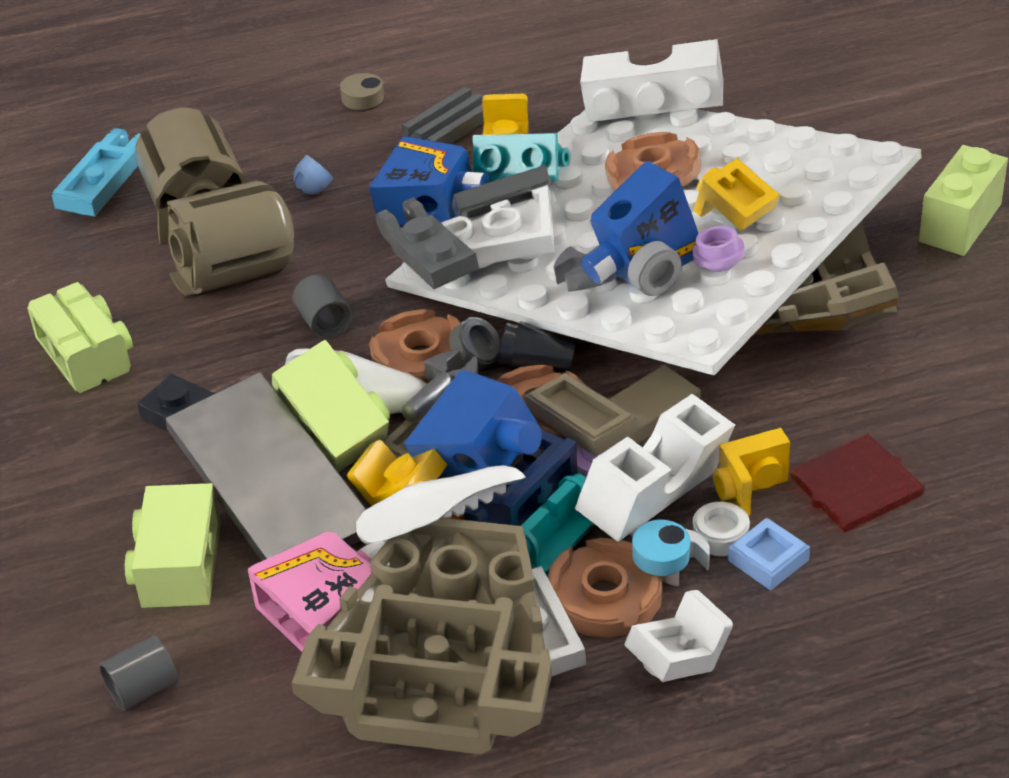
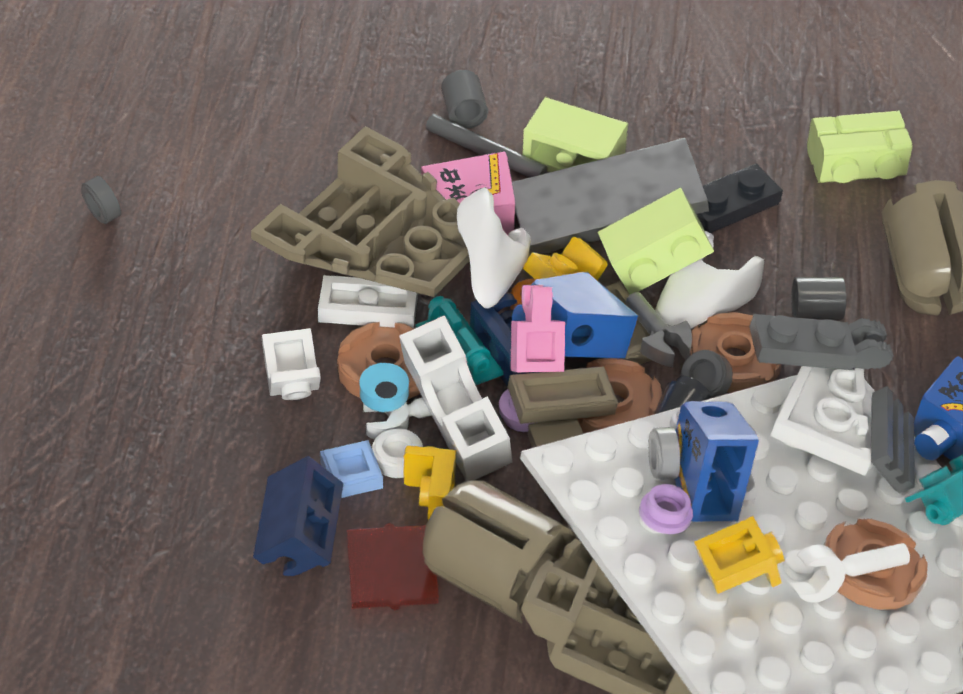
camera: 110 degrees right, 5 degrees up
(206, 637) = (483, 146): none -> dark grey bar
(550, 413) = (538, 341): none -> bright pink plate
(701, 155) = (833, 570): none -> white piece
(821, 382) = (491, 544): none -> dark tan cylinder
(877, 546) = (299, 517): none -> dark blue hinge

